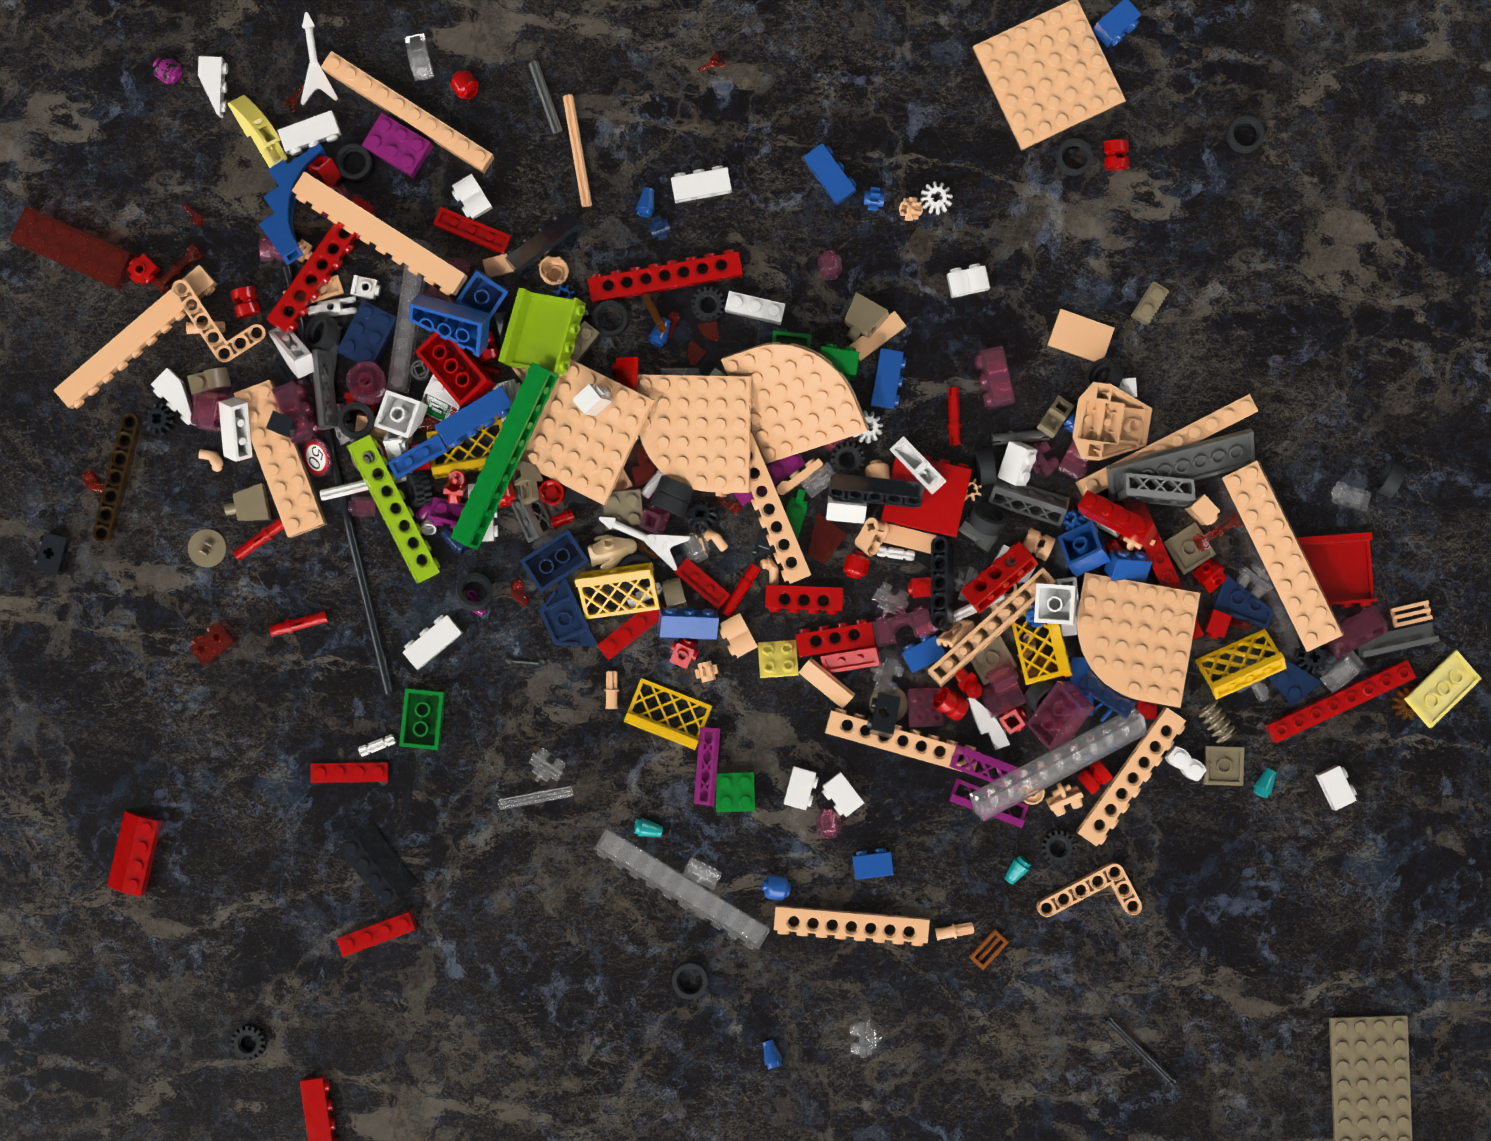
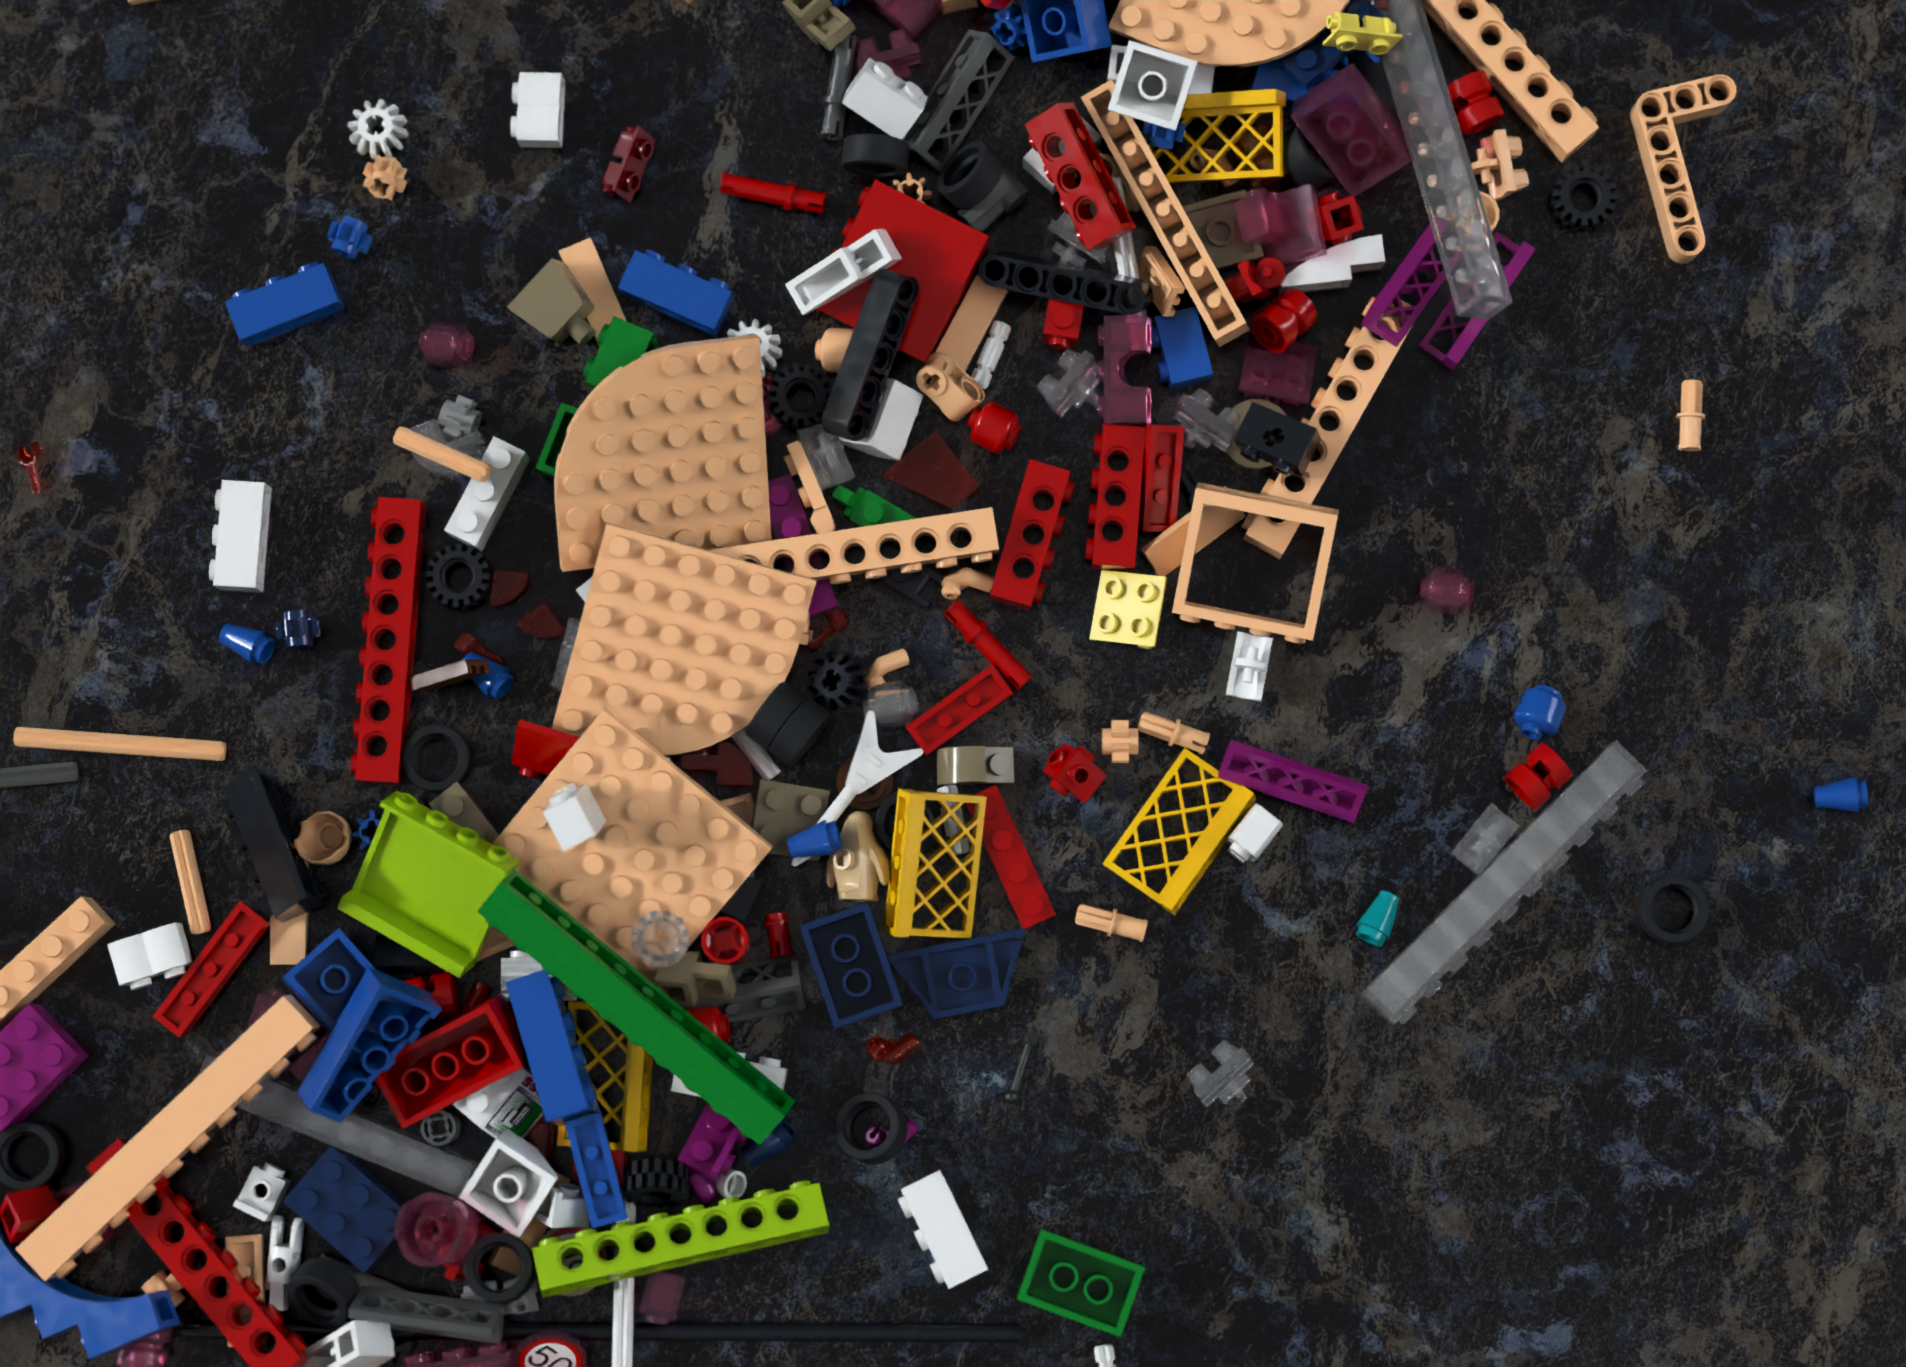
camera: 75 degrees left, 5 degrees down
(456, 486) = (669, 1112): red hips -> none
(514, 207) = (190, 882): none -> light nougat axle
(535, 457) = (651, 952): none -> clear gear
(535, 797) = (1274, 1110): clear axle -> none
(614, 527) = (816, 841): none -> blue cone
(654, 519) = (822, 767): clear pink brick -> none
(673, 752) = (1253, 834): none -> white brick
(688, 623) = (1025, 752): brick -> none
(718, 698) = (1173, 732): none -> light nougat axle
(735, 791) = (1351, 741): green brick -> none
(735, 891) = (1529, 785): none -> red wheel
(737, 635) = (1069, 669): light nougat brick -> none
(762, 729) = (1249, 666): none -> white hips
(768, 279) = (442, 454): none -> light nougat axle
(769, 274) = (471, 444): none -> clear brick
(792, 282) = (459, 417): none -> light grey gear
(800, 788) = (1371, 625): white brick -> none
(842, 794) = (1400, 553): white brick -> none
(846, 719) = (1265, 506): none -> light nougat window
(867, 1039) = (1864, 626): clear hips -> none
(872, 864) = (1538, 530): blue brick -> none
(920, 925) = (1687, 480): light nougat brick -> none
(959, 337) = (635, 149): none -> dark red hinge
(988, 949) = (1725, 370): dark orange tile -> none
(995, 378) = (723, 101): clear pink brick -> none
(1017, 869) = (1607, 278): teal cone -> none
(1033, 538) = (1038, 85): light nougat wheel -> none
(1110, 701) = (1375, 36): none -> light yellow hinge

